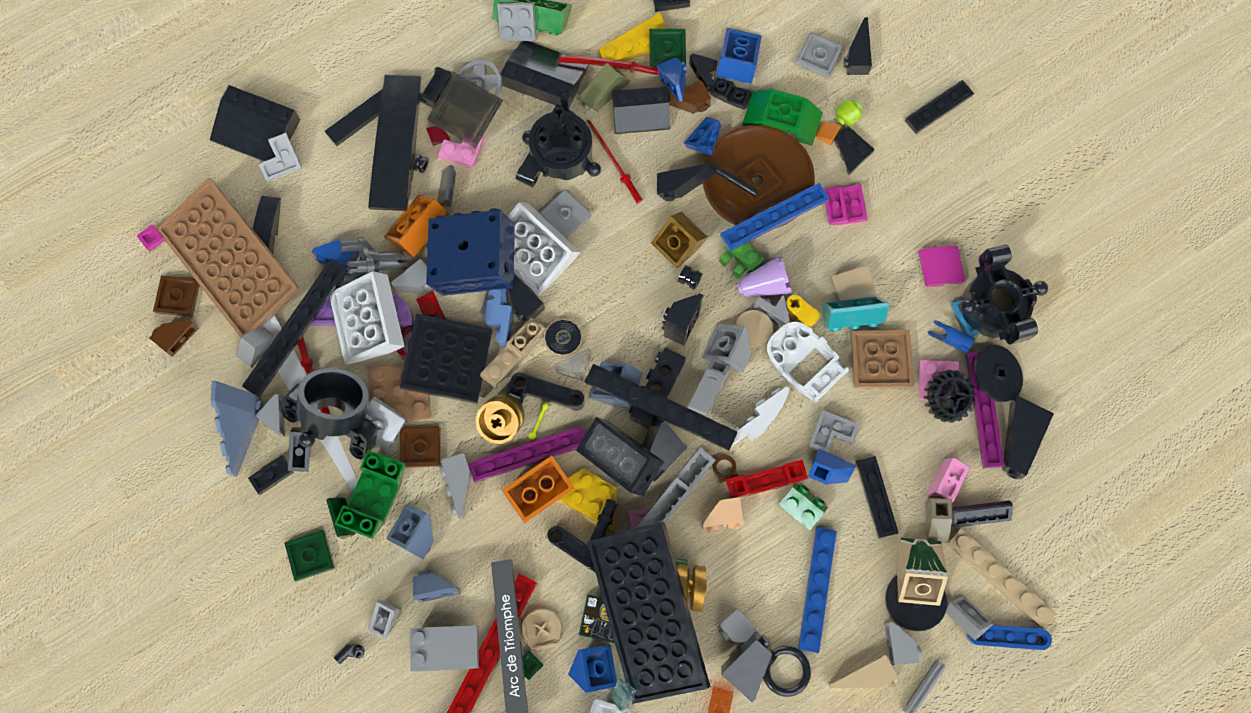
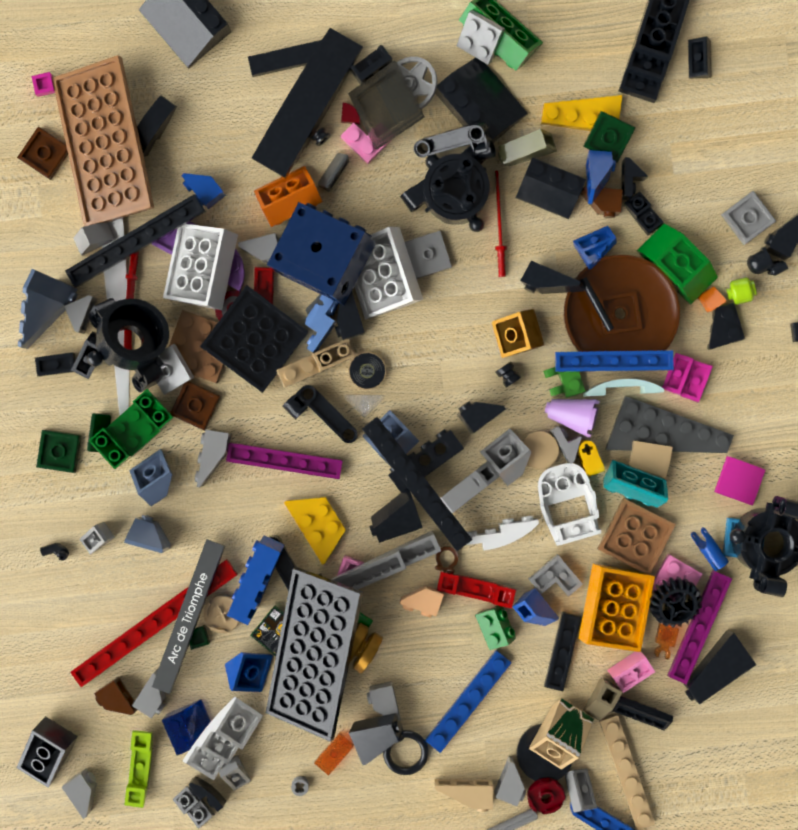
camera: 30 degrees right, 15 degrees up
(173, 335) = (23, 192): reddish brown slope -> none
(285, 159) = (197, 69): plate -> none
(369, 259) = (230, 213): dark grey wheel -> none
(444, 648) = (133, 590): light grey slope -> none
(500, 418) = (273, 420): wheel -> none
(532, 436) = (296, 445): neon yellow hinge -> none
(538, 489) = (276, 498): orange slope -> none
(540, 105) = (482, 145): none -> piece
(556, 572) = (255, 580): none -> blue wedge
(604, 520) = (316, 556): black pin -> none
(616, 64) = (565, 137): red sword -> none
(620, 456) = (358, 509): brick -> none
(622, 694) = (261, 702): clear light blue slope -> none
(739, 55) = (672, 179): blue slope -> none
(815, 228) = (645, 387): none -> light aqua slope
(837, 257) = (657, 426): none -> dark grey wing
(852, 82) = (762, 262): none -> black piece
(901, 429) = (616, 608): none -> light orange slope
(929, 638) = (542, 787): none -> dark red tile
(962, 433) = (665, 637): none -> clear orange plate
(998, 373) = (719, 599): black piece -> none

